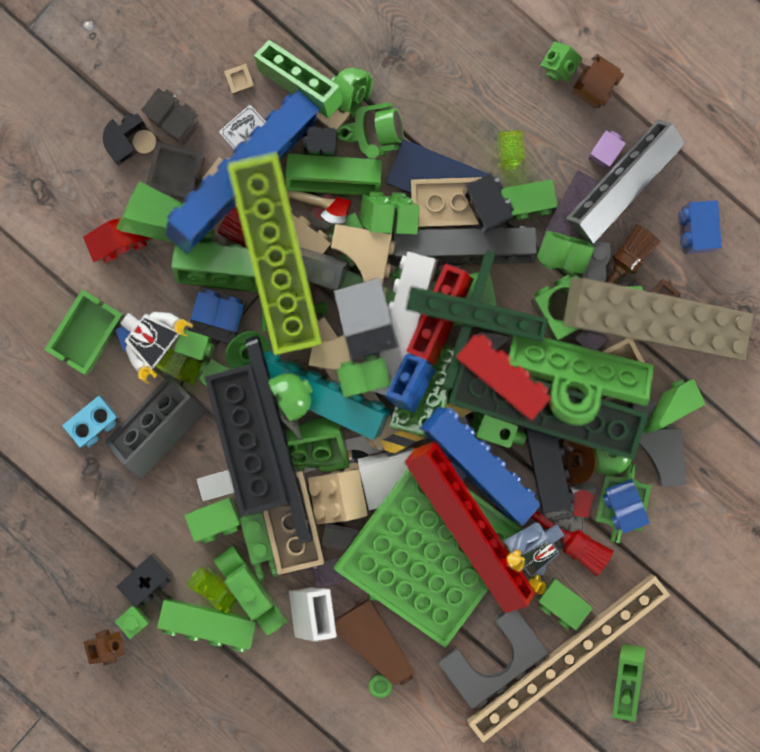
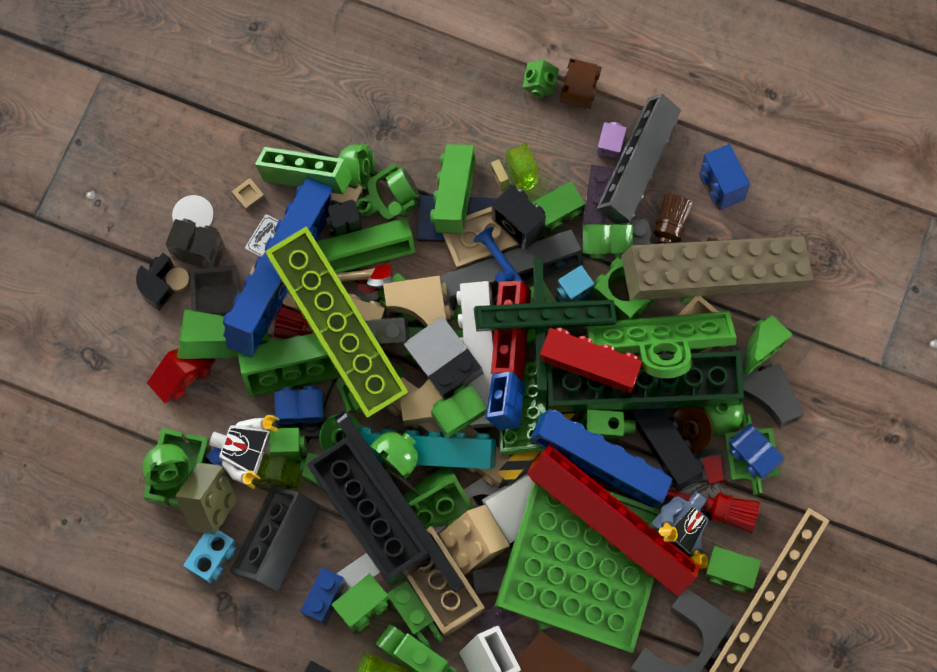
camera: 15 degrees left, 15 degrees down
(72, 330) = (166, 466): none -> bright green cylinder
(102, 372) = (206, 498): none -> olive brick
(181, 79) = (195, 209): none -> white sticker
(182, 497) = (323, 593): none -> blue brick
(382, 212) = (426, 261): bright green piece -> none
(437, 148) = (454, 189): none -> bright green brick
(460, 256) = (510, 274): none -> blue piece
(486, 145) = (499, 174): none -> tan tile
(516, 288) = (575, 286): none -> medium azure brick
(590, 339) = (661, 308): brick -> none
(628, 682) = (824, 625): bright green slope -> none

